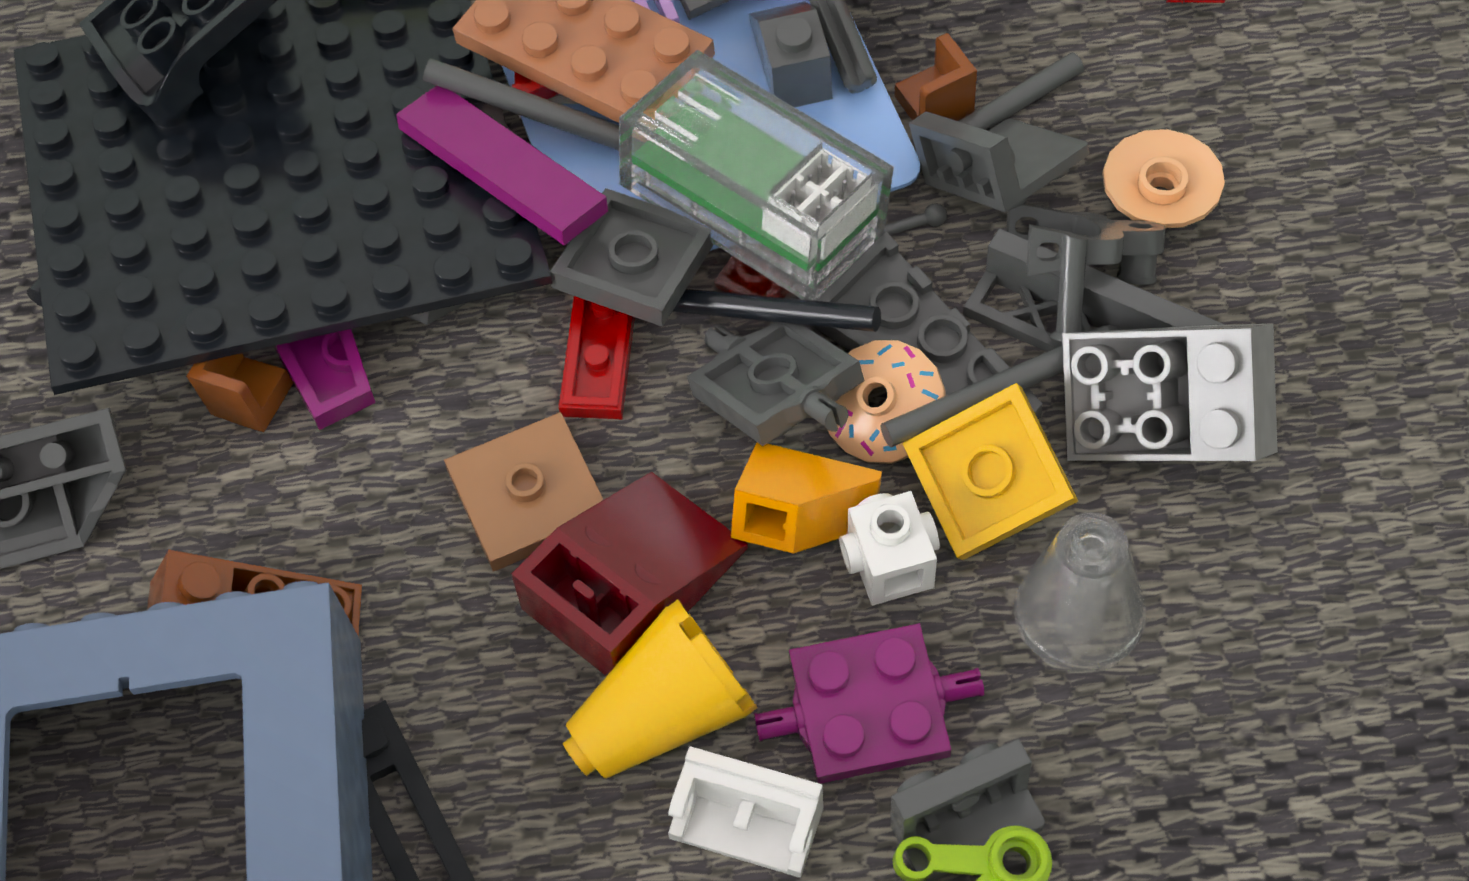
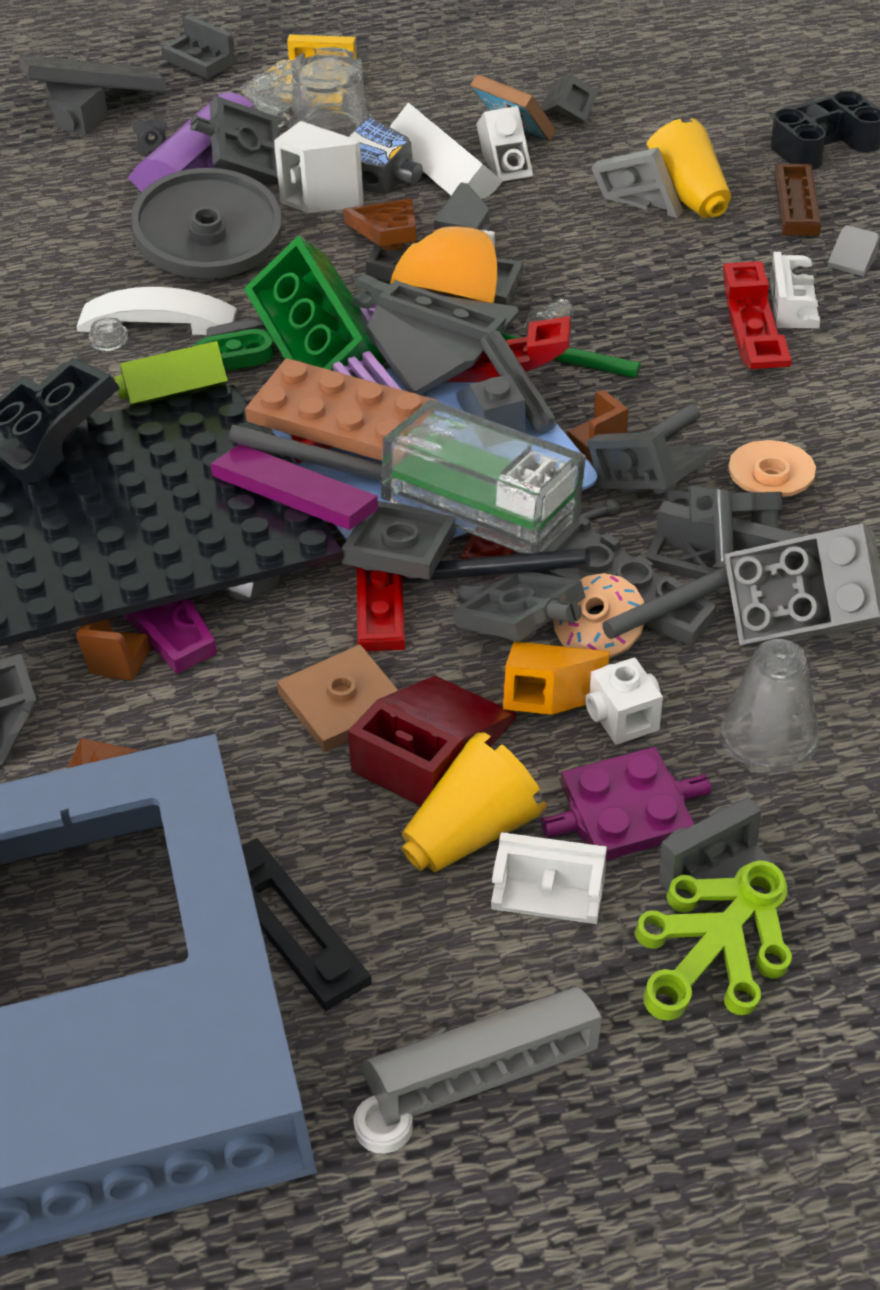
camera: 10 degrees left, 15 degrees down
(989, 472) = (688, 647): yellow plate -> none

